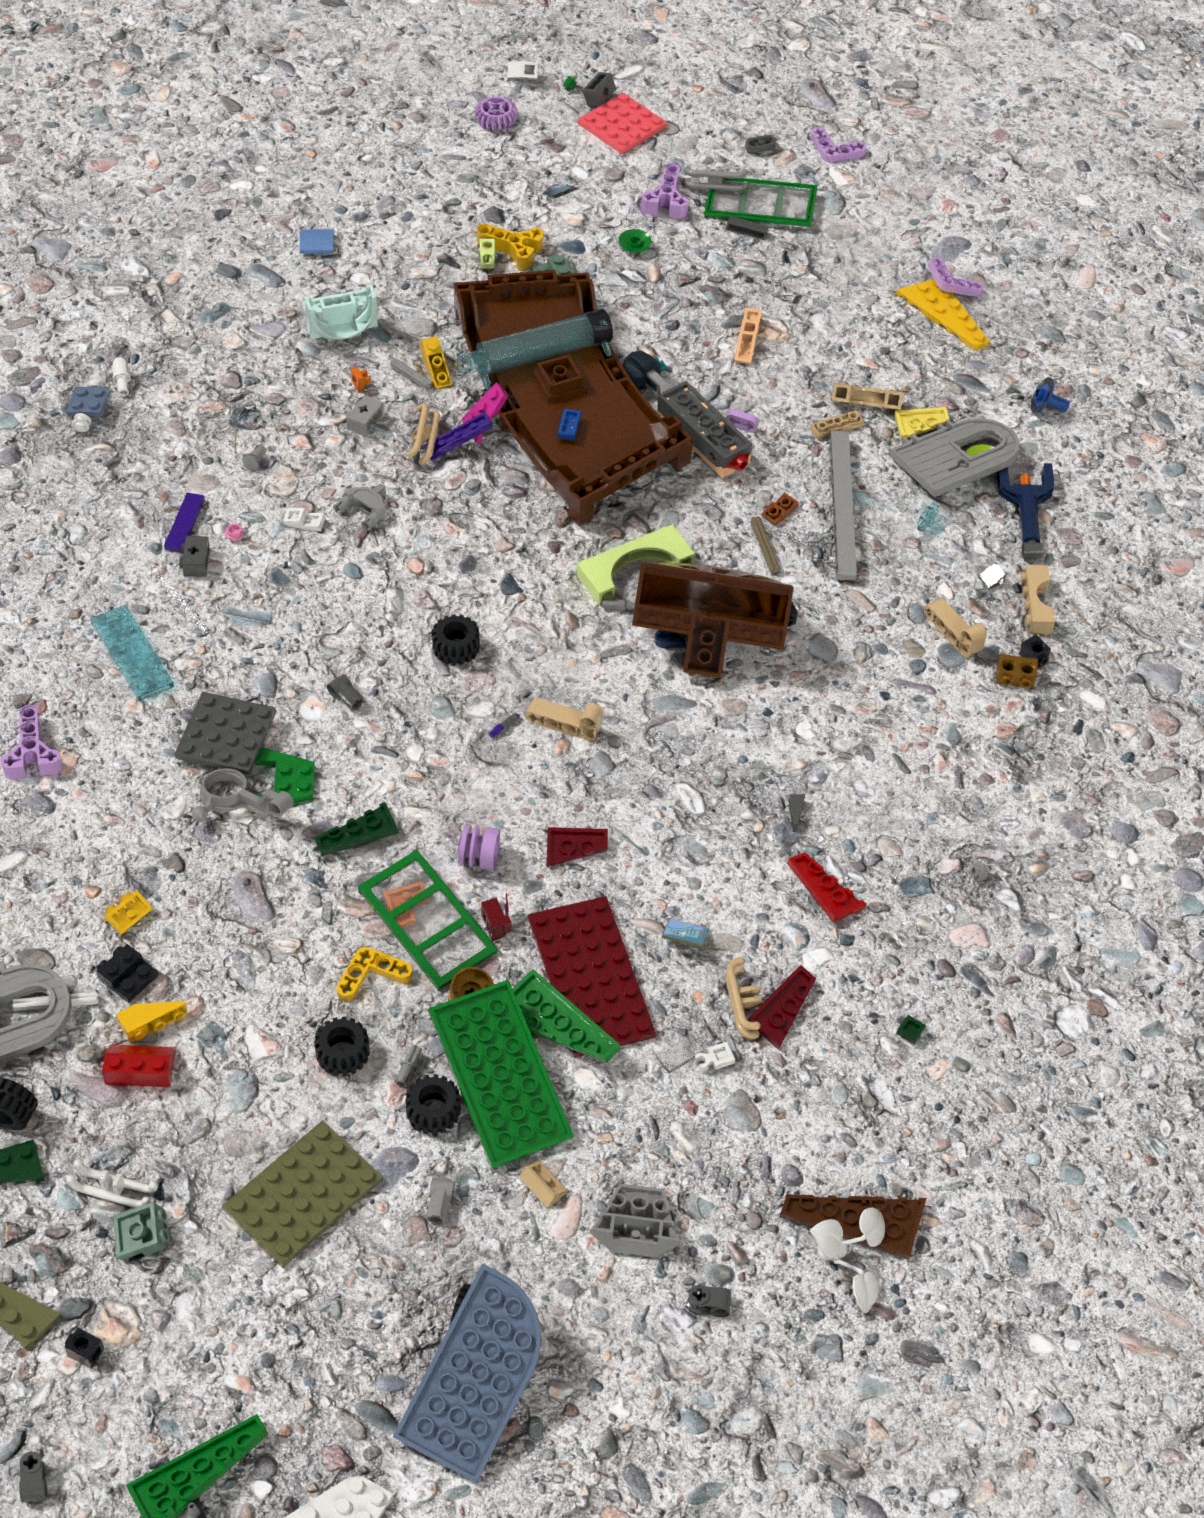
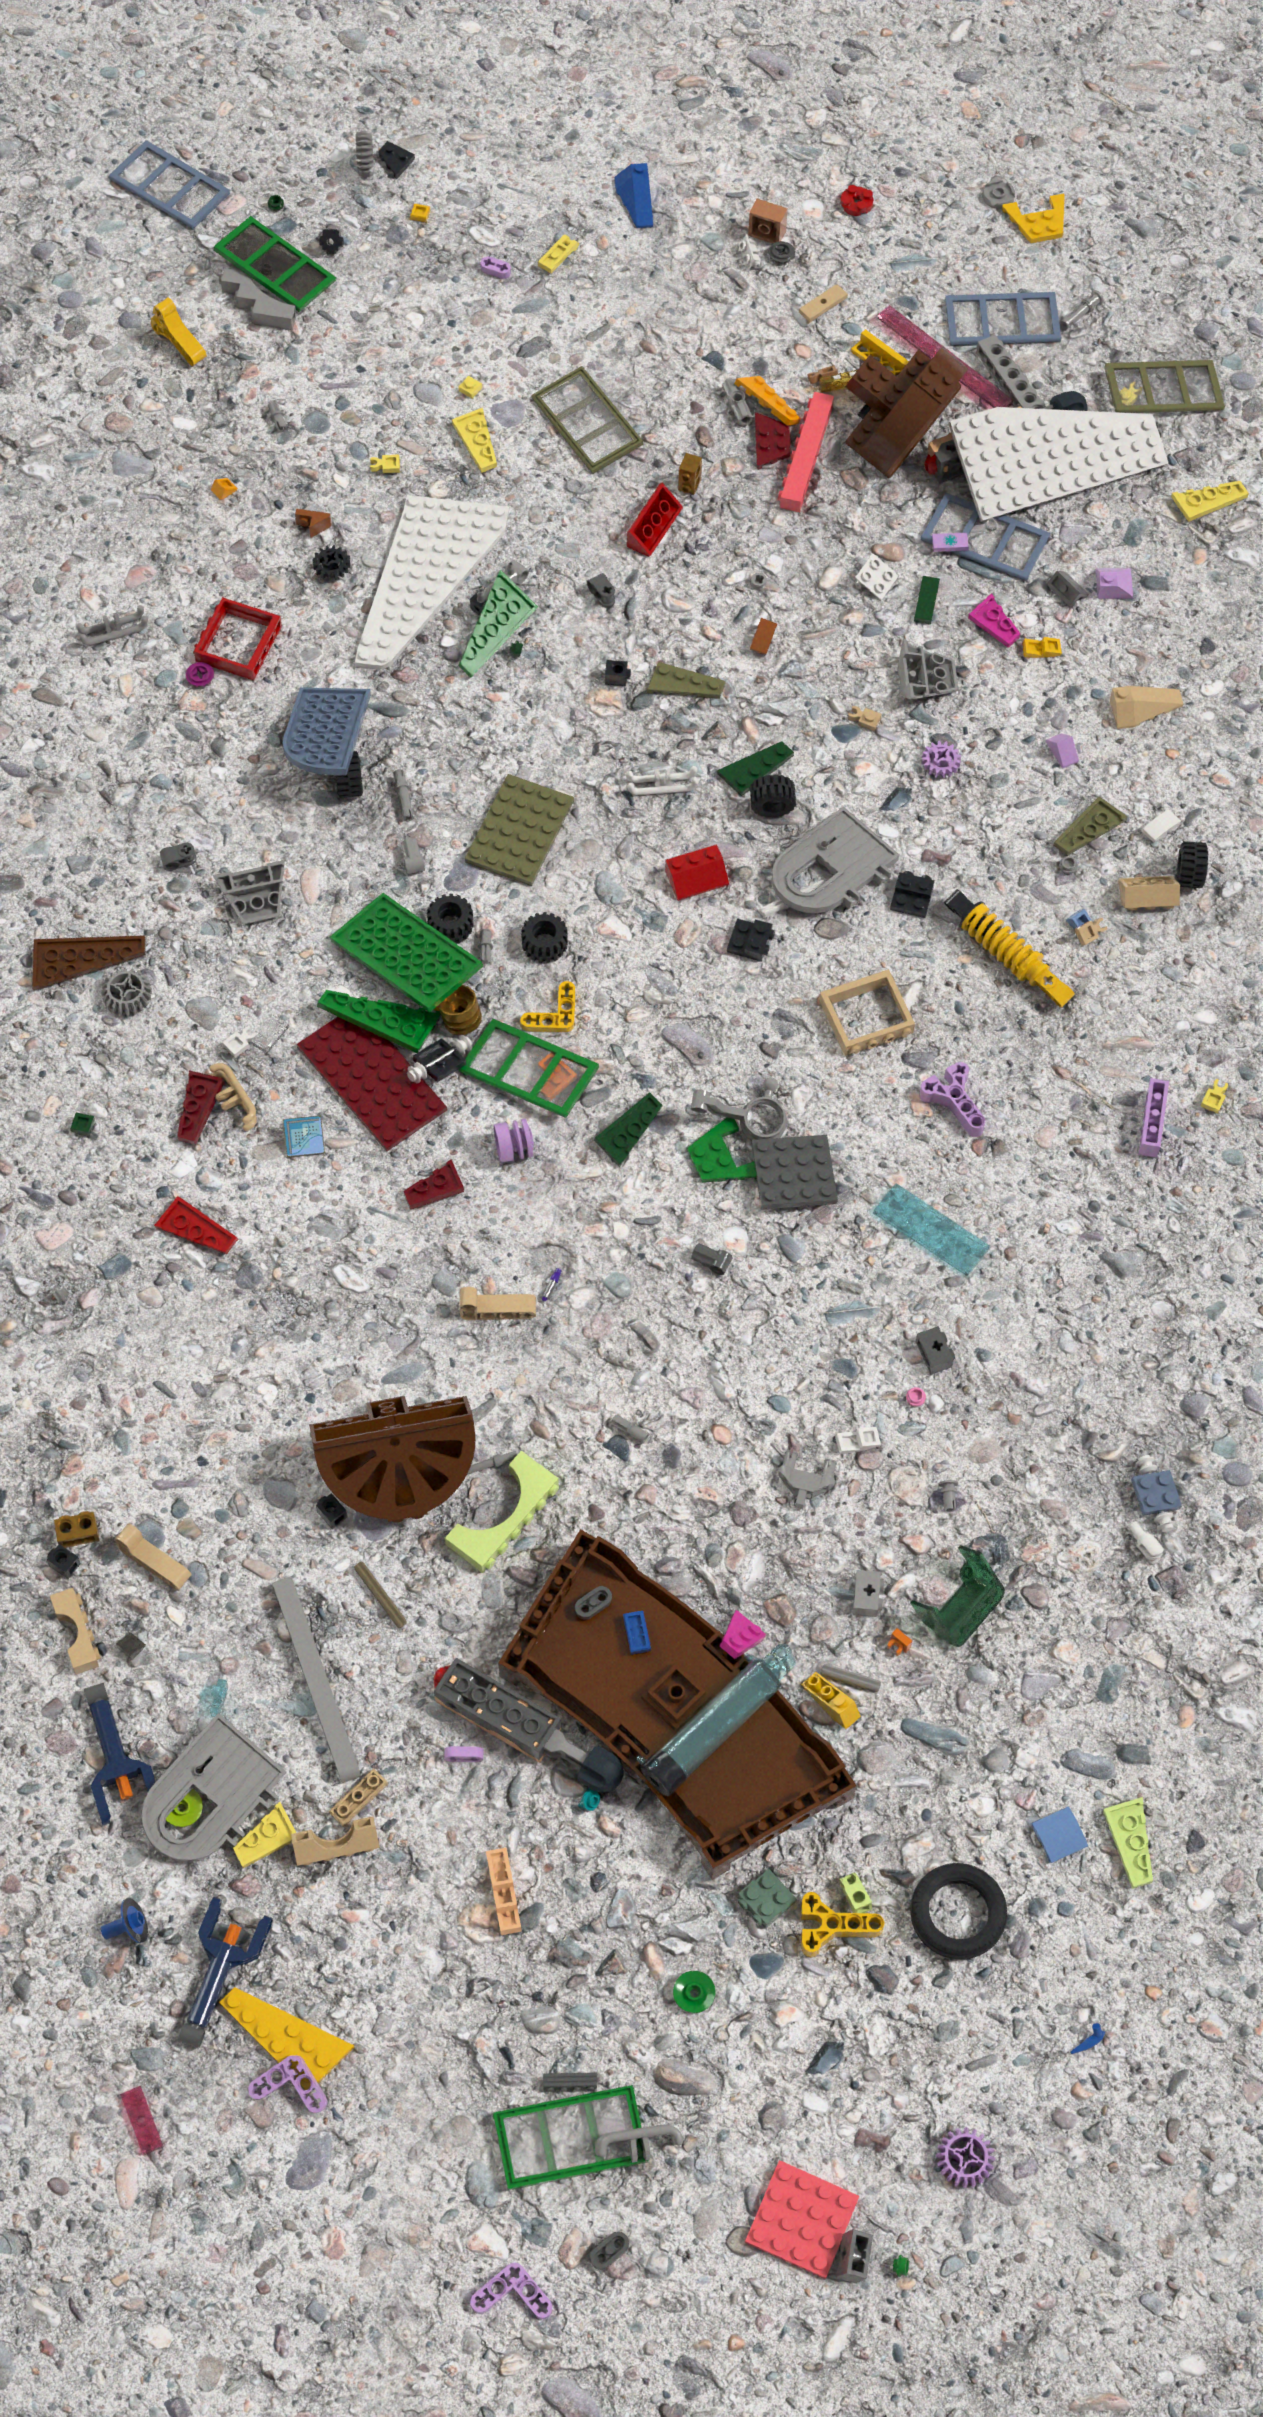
camera: 160 degrees right, 10 degrees up
(60, 881) = (857, 988): none -> tan window
(128, 912) = (781, 985): yellow bracket -> none
(140, 1231) = (622, 756): sand green plate -> none
(149, 1017) = (713, 906): yellow slope -> none
(184, 521) = (971, 1391): dark purple tile -> none
(185, 1431) = (516, 649): none -> dark green plate
(267, 223) = (1130, 1837): none -> yellowish green wing
(297, 383) = (970, 1603): none -> clear green windscreen
(339, 314) = (964, 1705): light aqua piece -> none
(373, 141) = (1090, 2042): none -> blue bar
(413, 1290) = (403, 796): none -> light grey pin
(418, 241) = (958, 1874): none -> black tyre
(425, 433) = (790, 1589): tan piece -> none
(455, 628) = (636, 1363): black tyre -> none
(460, 435) = (753, 1597): dark purple tile -> none
(493, 589) = (629, 1428): none -> light grey axle
(494, 918) = (471, 1088): dark red piece -> none
(516, 955) = (439, 1059): none -> black plate
(523, 70) = (967, 2255): white slope -> none
(543, 1183) = (339, 900): tan slope -> none
(594, 453) = (592, 1603): none -> dark grey plate
(666, 195) = (677, 2087): lavender beam -> none
(780, 509) = (381, 1649): dark orange slope -> none
(795, 805) = (248, 1299): dark grey piece -> none
(815, 1145) = (122, 986): none -> light grey gear
(829, 1236) = (92, 919): white plant -> none
(980, 362) = (222, 1958): none -> dark blue piece
(1067, 301) = (145, 2132): none -> clear pink tile

